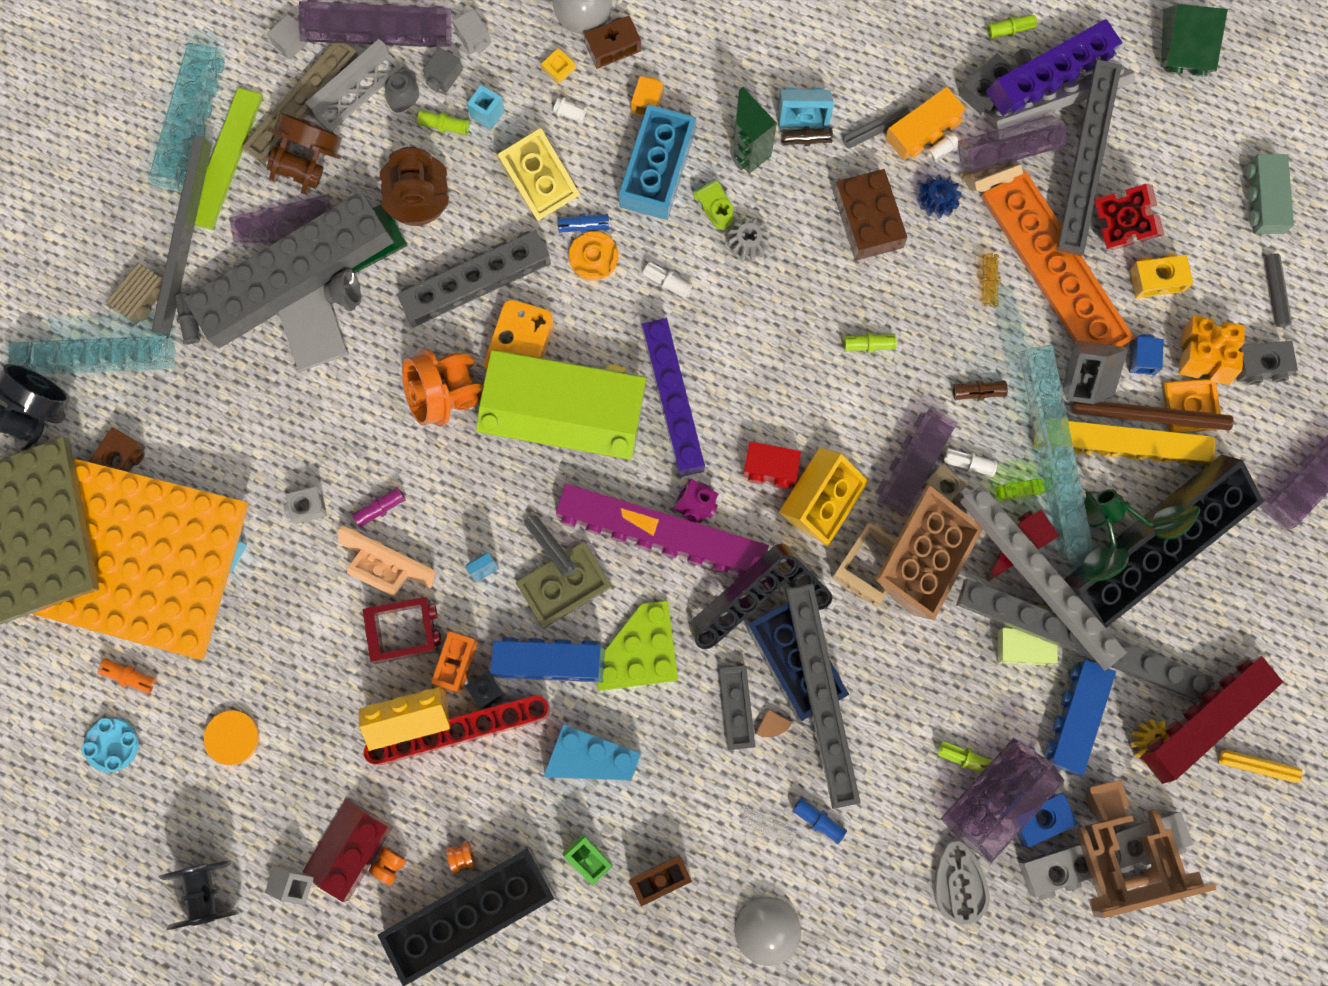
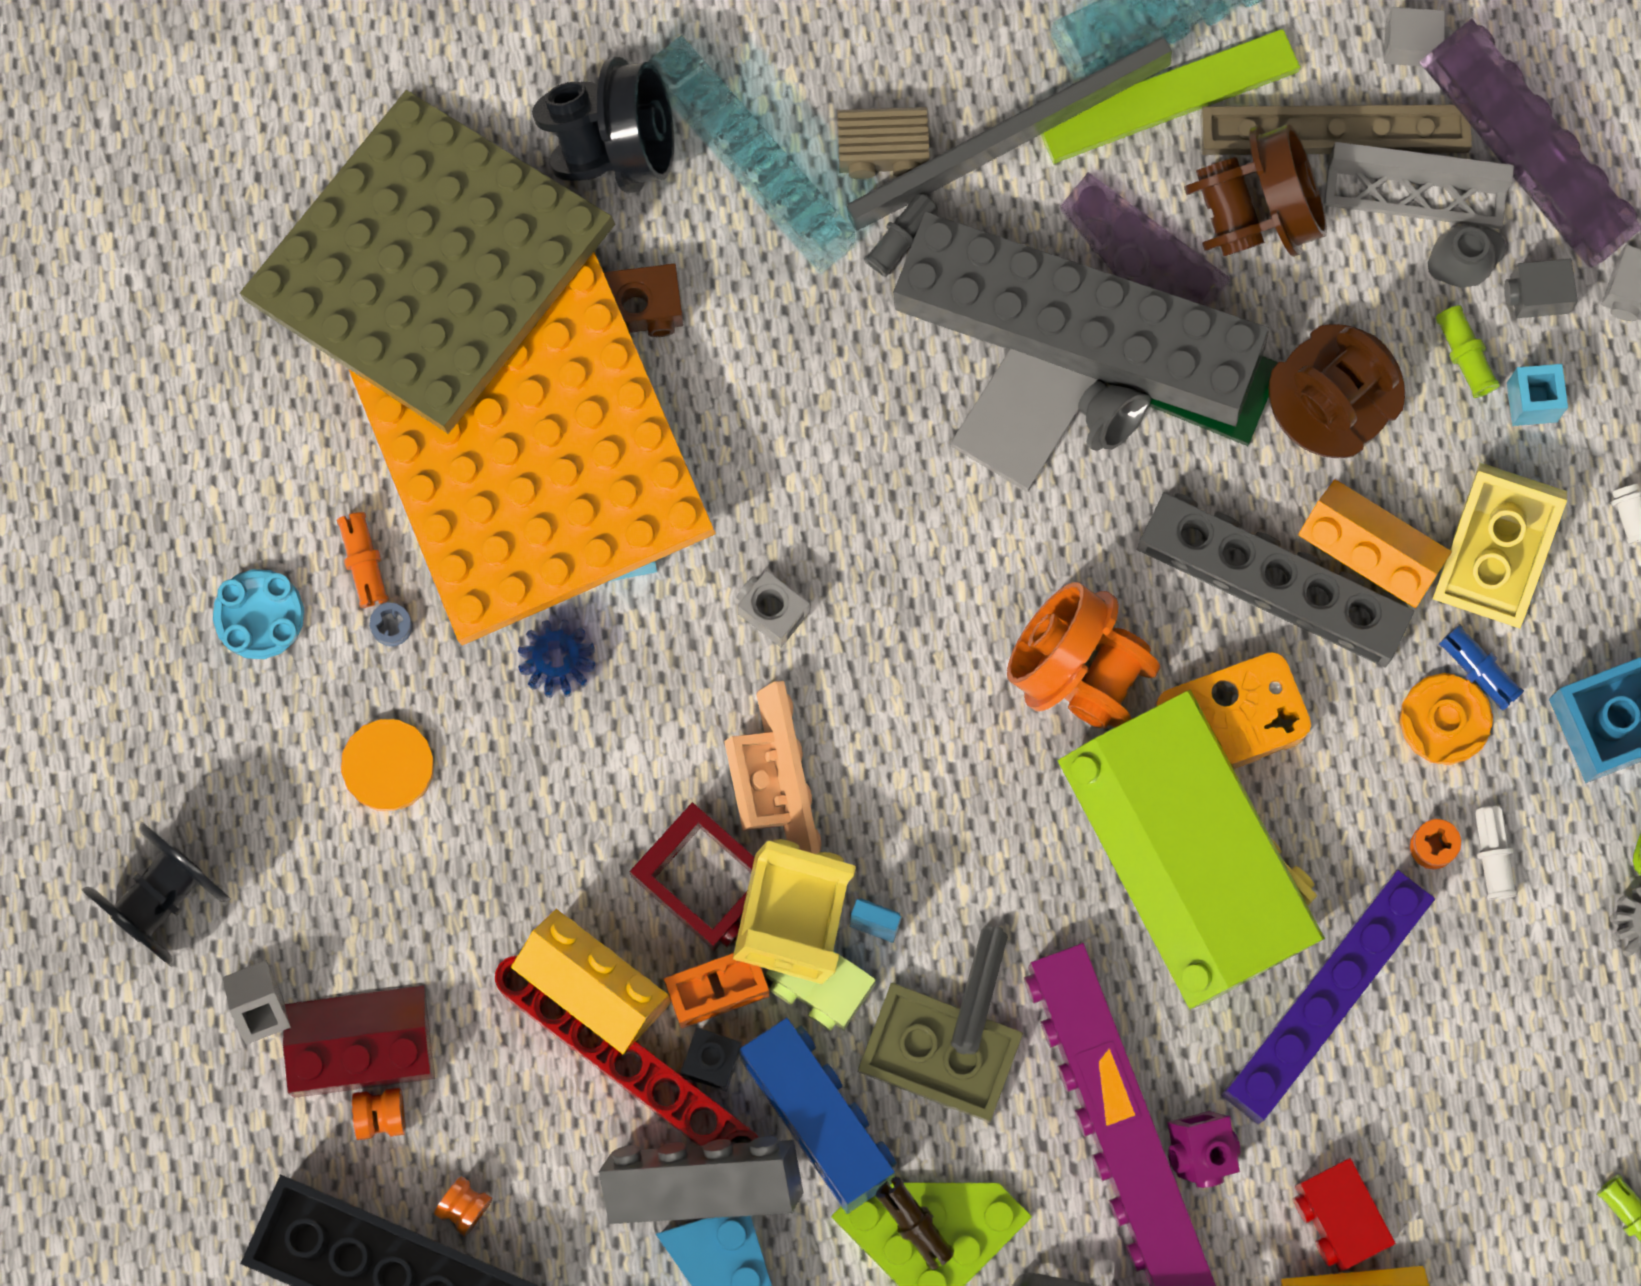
camera: 50 degrees right, 0 degrees up
(162, 692) = (377, 622): none -> sand blue bush
(244, 631) = (540, 653): none -> clear blue gear
(378, 507) = (848, 708): magenta pin -> none
(447, 600) = (793, 911): none -> light yellow panel
(489, 613) = (831, 1002): none -> yellowish green brick
(493, 224) = (1374, 543): none -> light orange brick
(535, 737) = (701, 1181): none -> dark grey brick
(630, 654) = (914, 1223): none -> dark brown pin
(641, 306) = (1430, 852): none -> orange wheel

